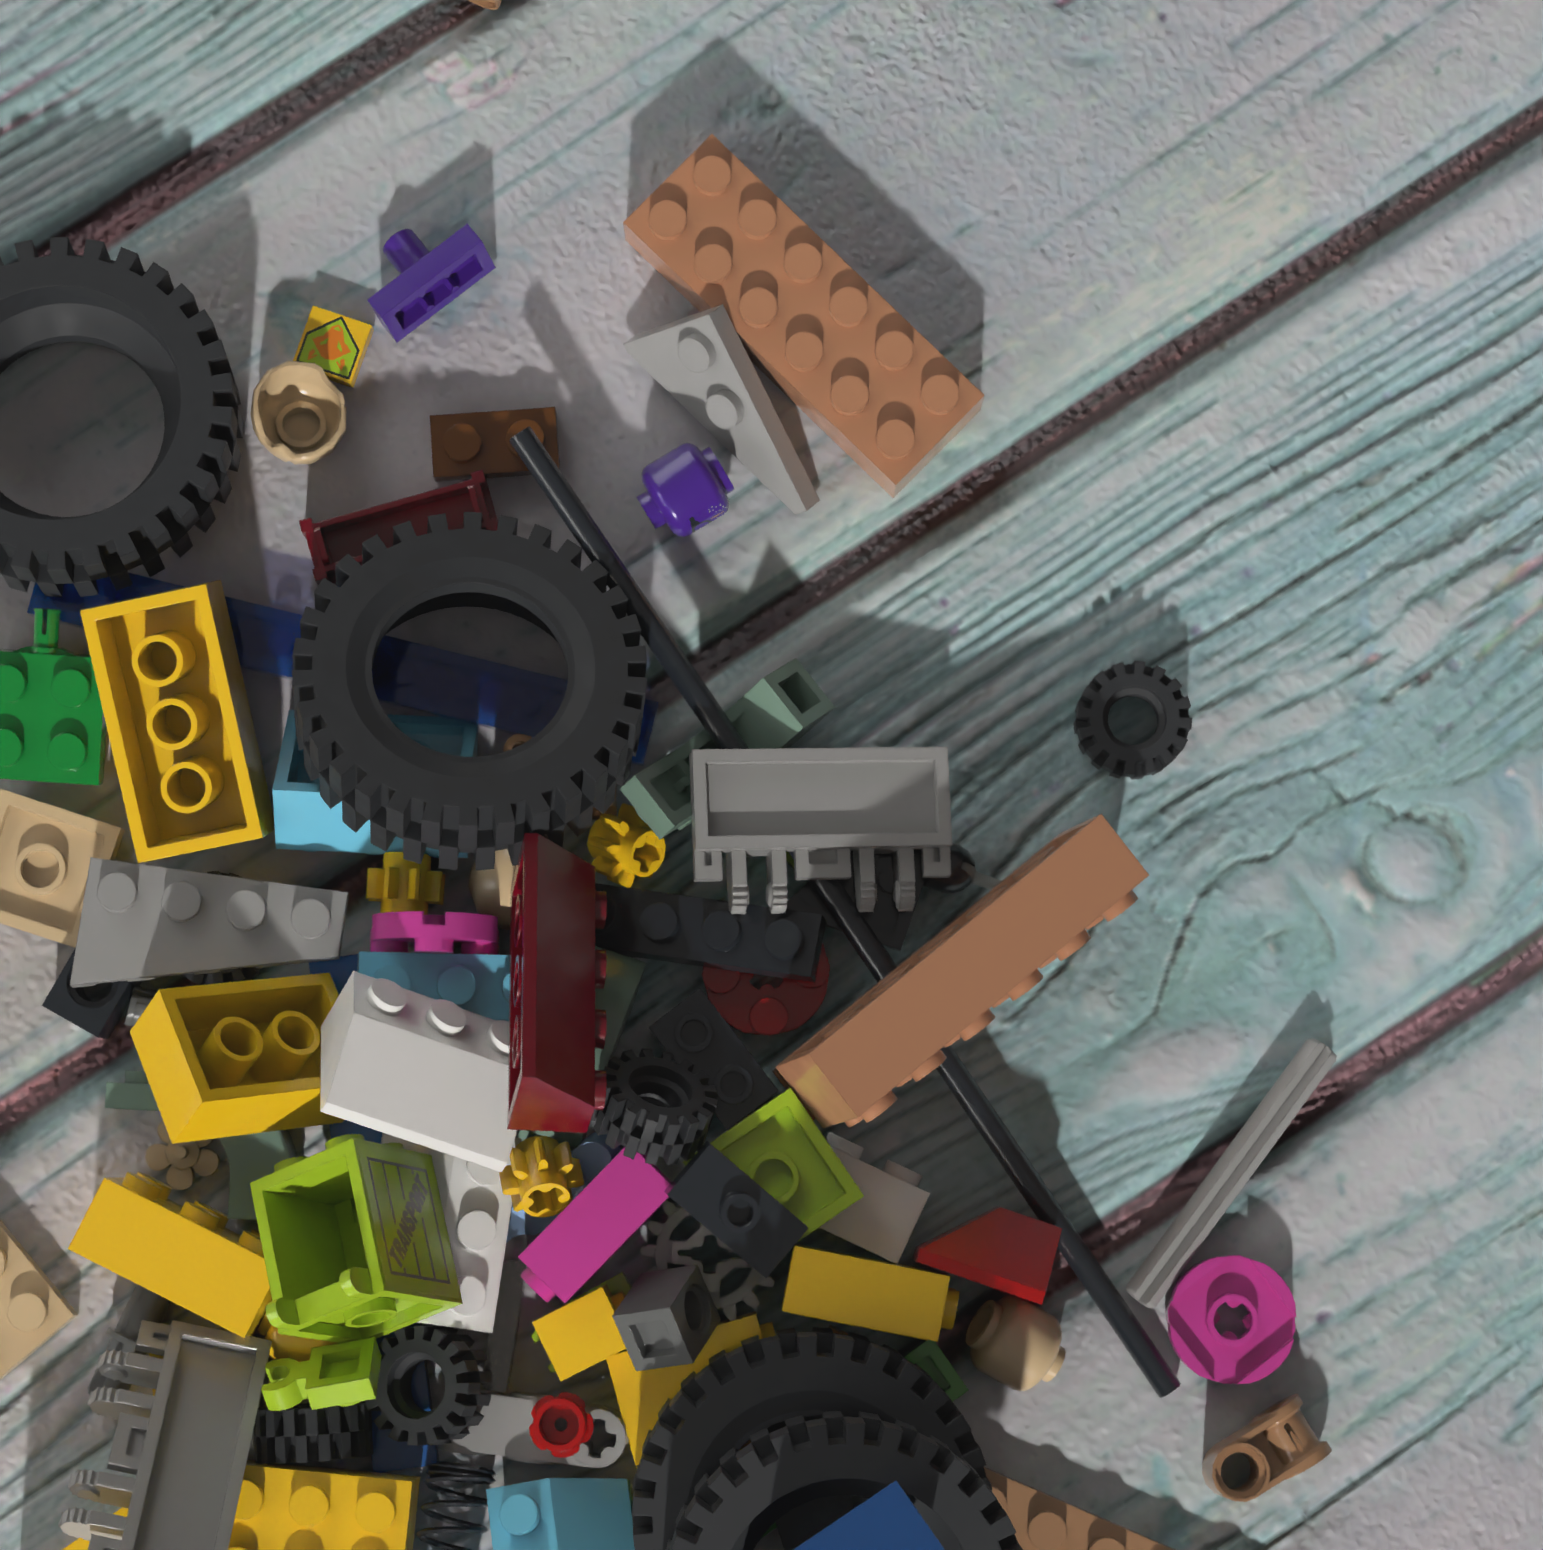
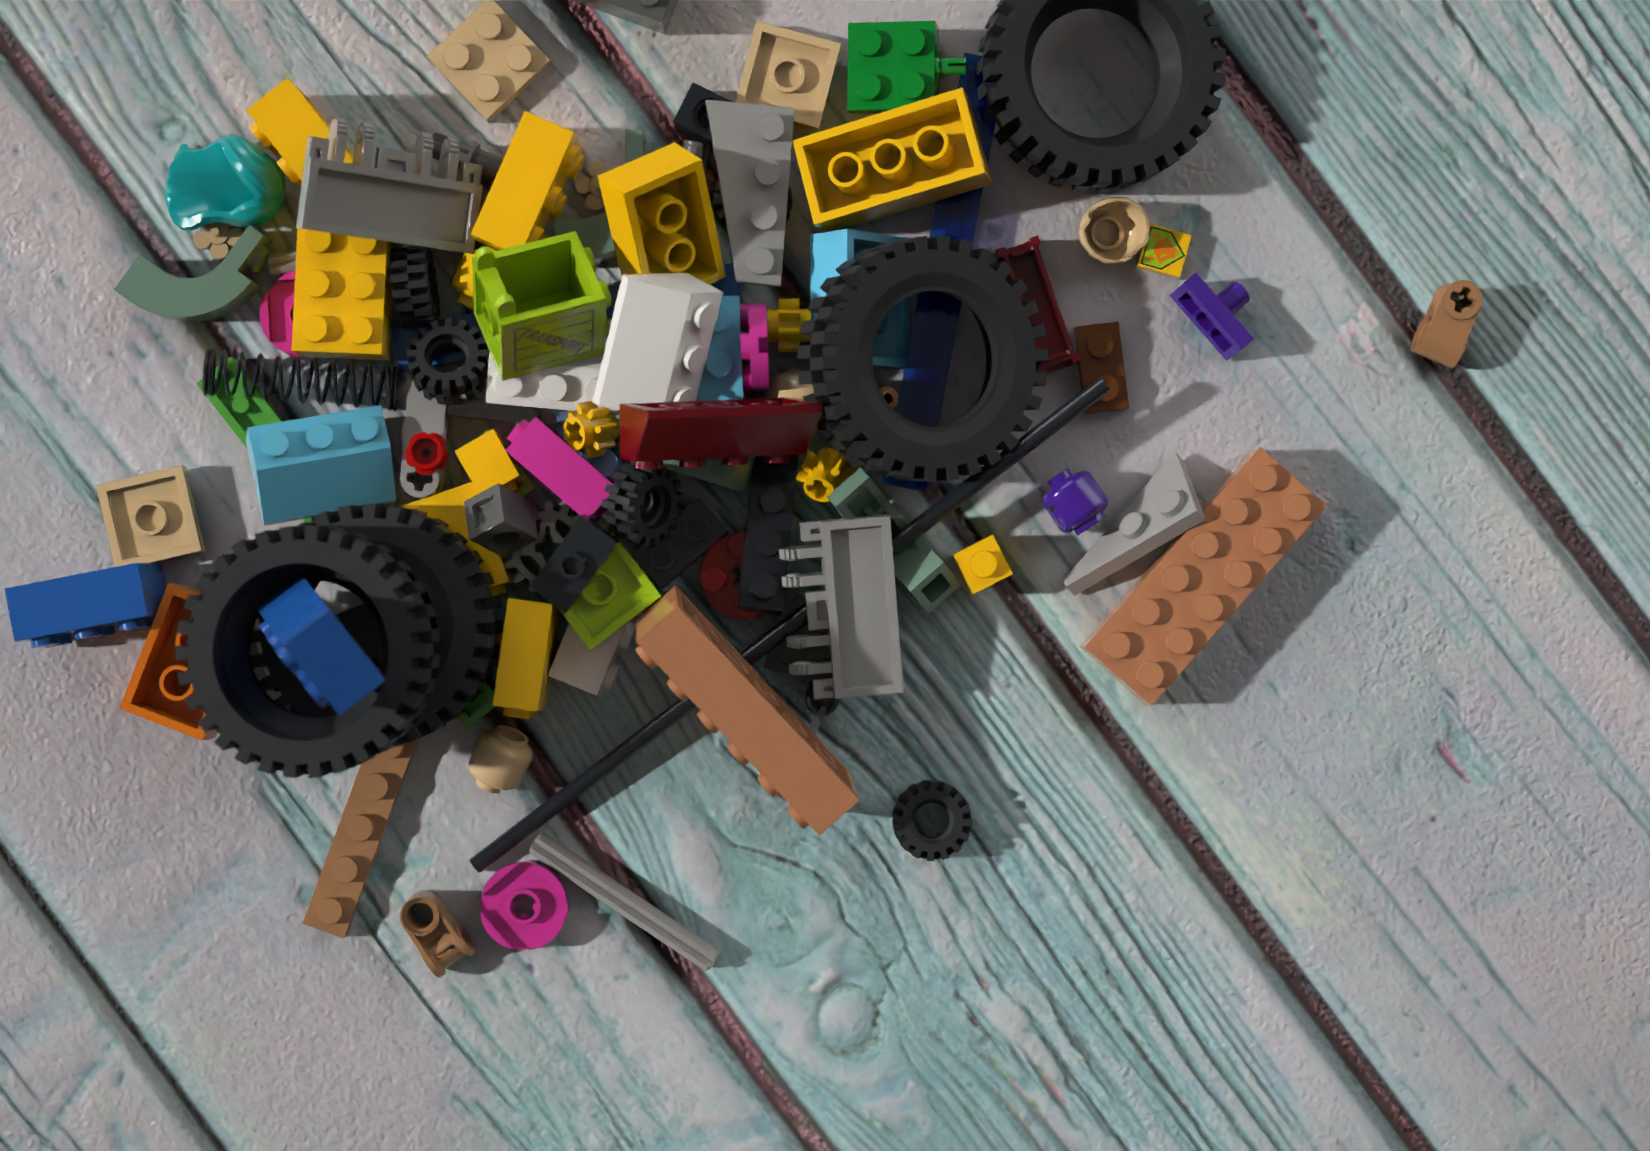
camera: 85 degrees right, 5 degrees up
(332, 1377) = (448, 295): lime plate -> none
(768, 628) = (981, 564): none -> yellow brick
(997, 1251) = (558, 741): red slope -> none

